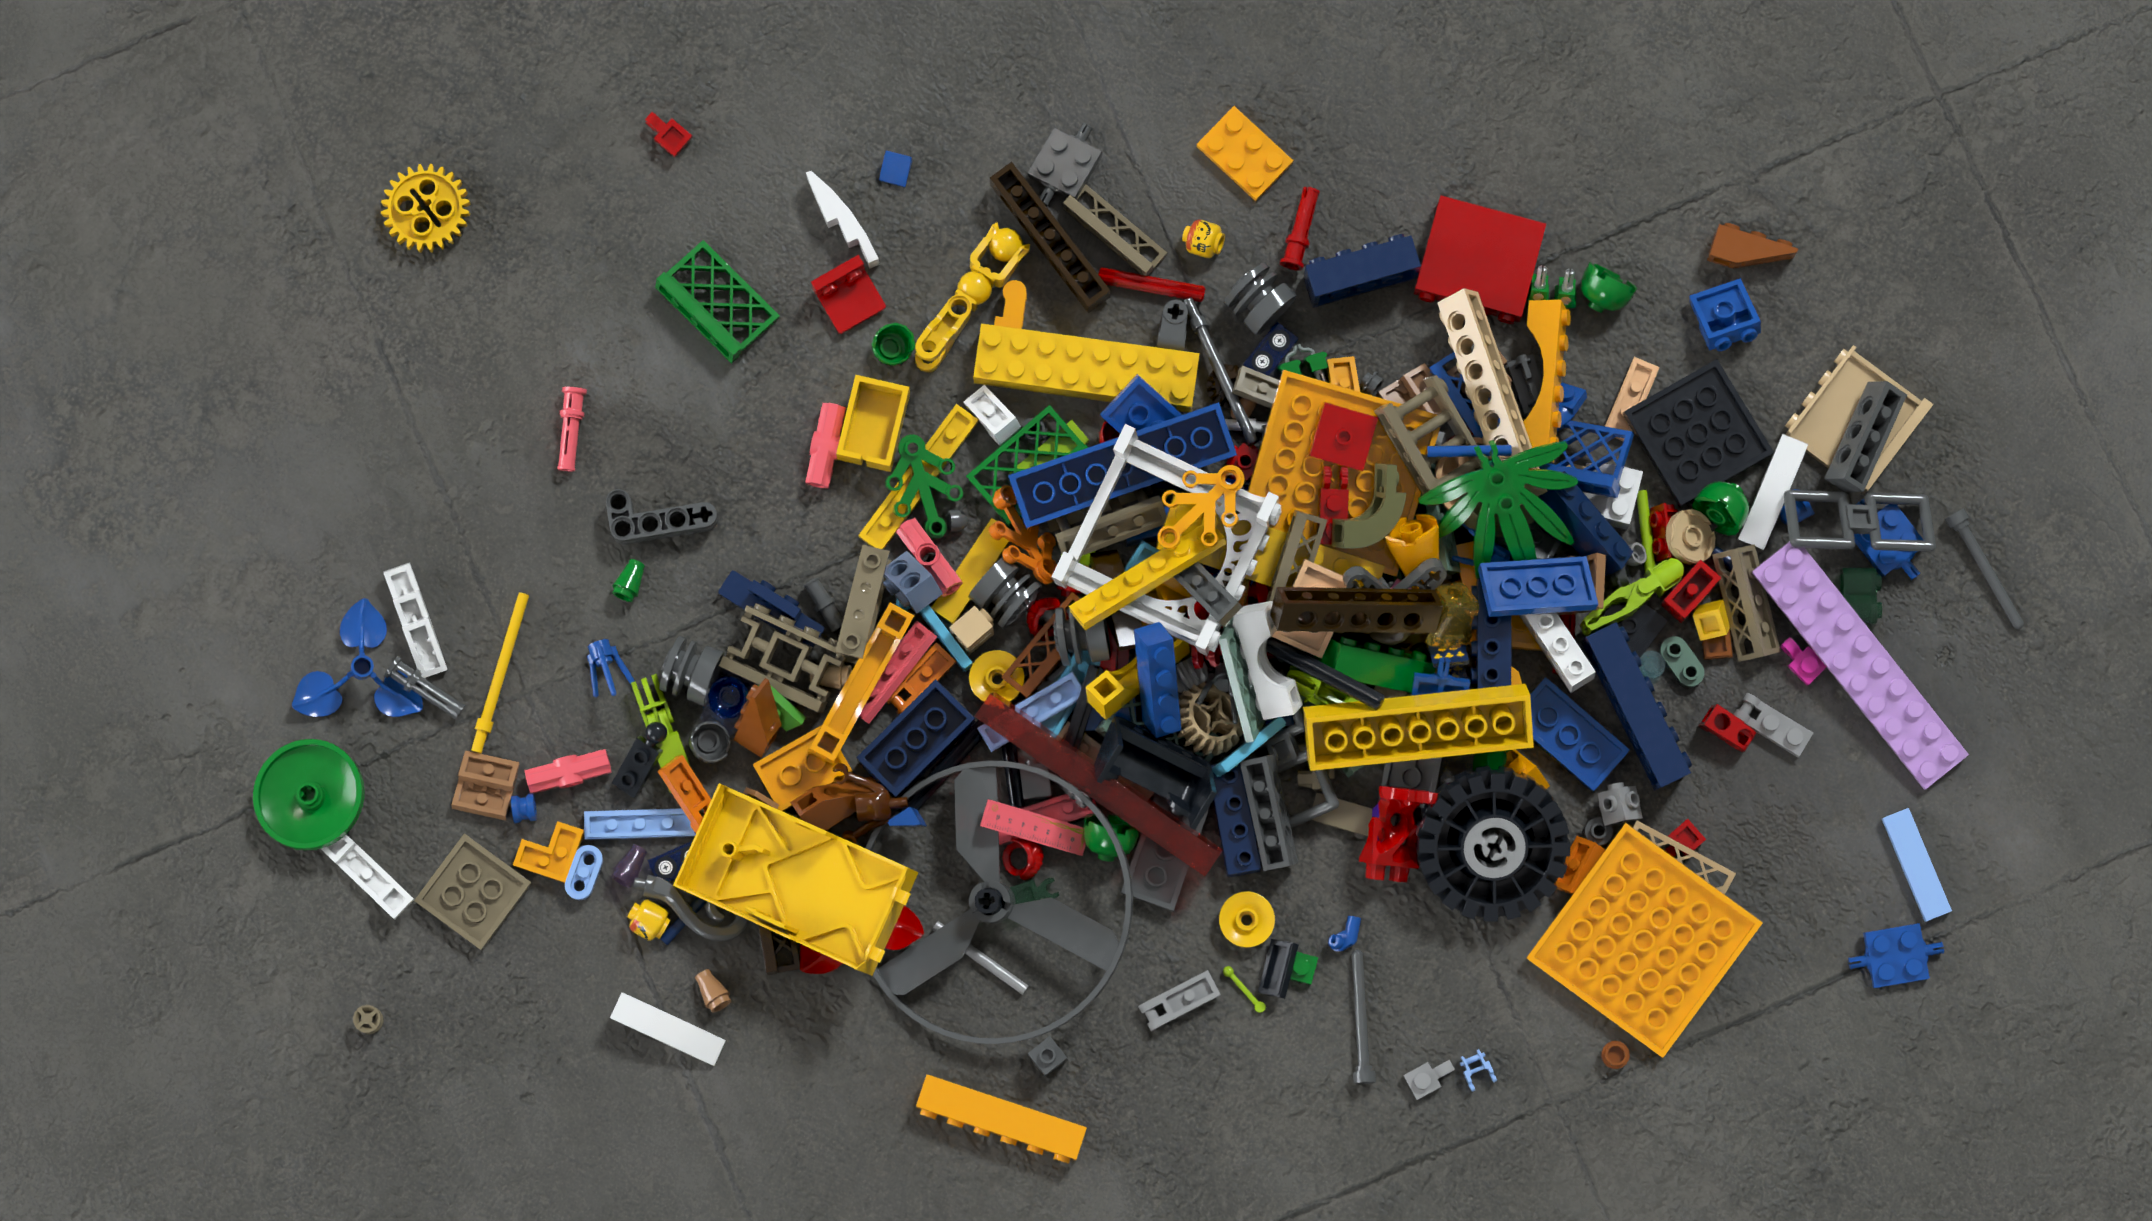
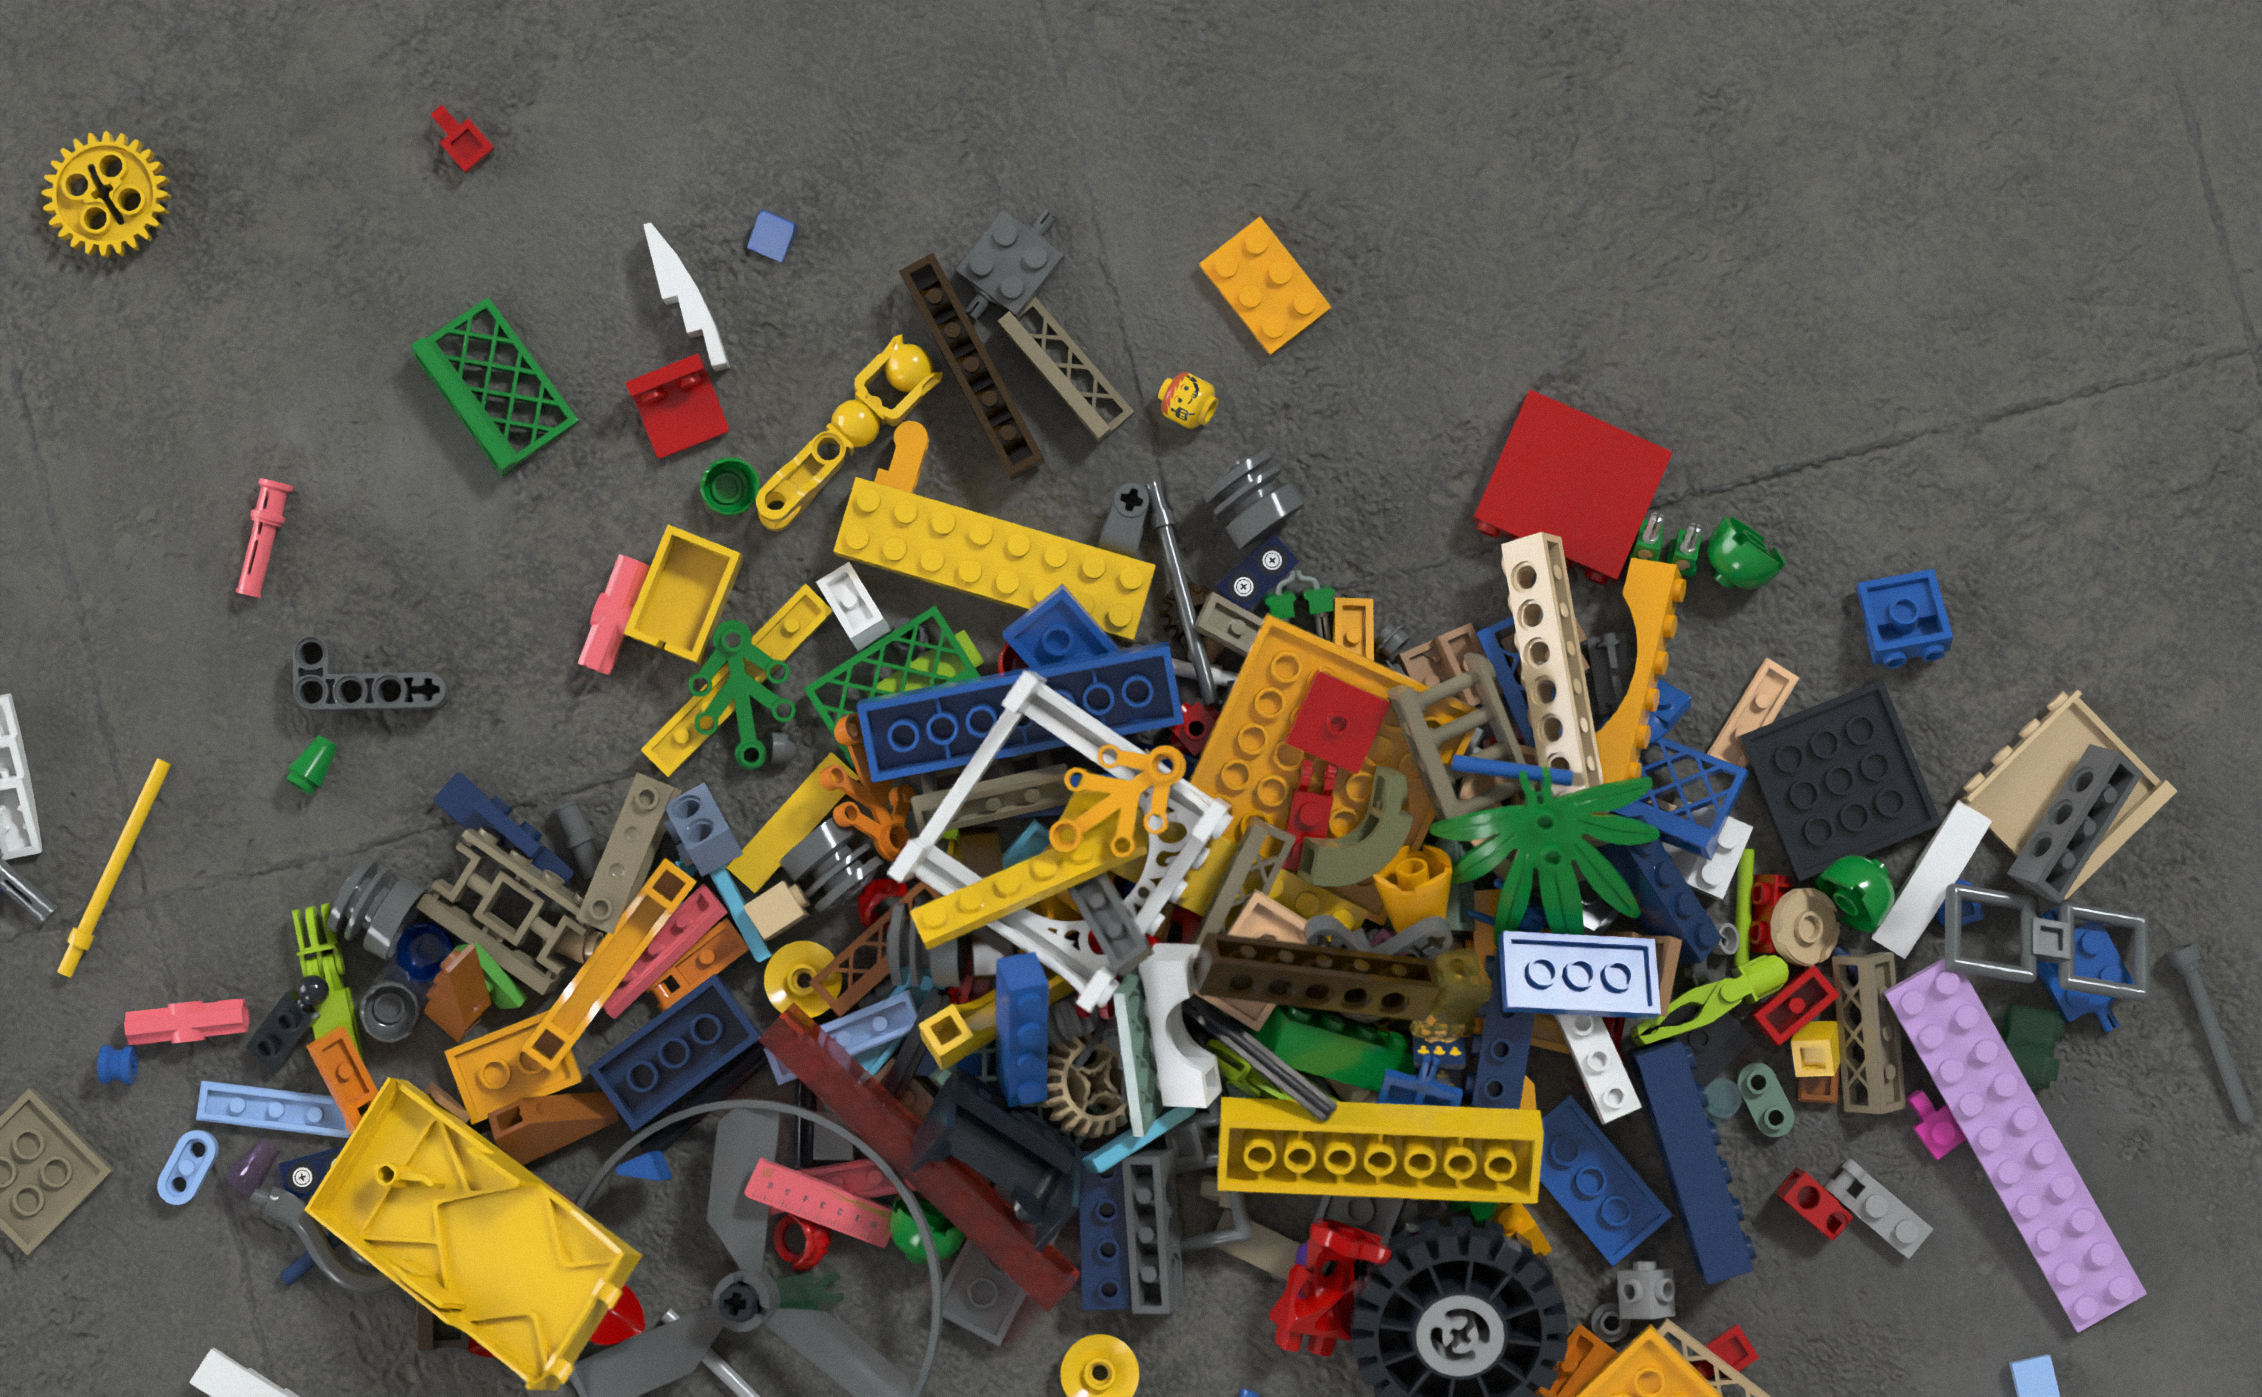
camera: 10 degrees right, 5 degrees up
(485, 785) = (70, 1022): medium nougat slope -> none
(552, 860) = (146, 1144): light orange plate -> none
(601, 655) = (256, 865): blue plant -> none
(648, 919) = (267, 1248): yellow head -> none
(713, 992) = (341, 1361): medium nougat cone -> none
(870, 806) = (597, 1140): reddish brown piece -> none
(919, 545) = (723, 776): coral piece -> none
(1152, 284) = (1105, 453): red axle -> none
(1297, 240) = (1320, 422): red pin -> none
(1361, 270) = (1402, 481): dark blue brick -> none
(1742, 249) = (1937, 526): dark orange slope -> none

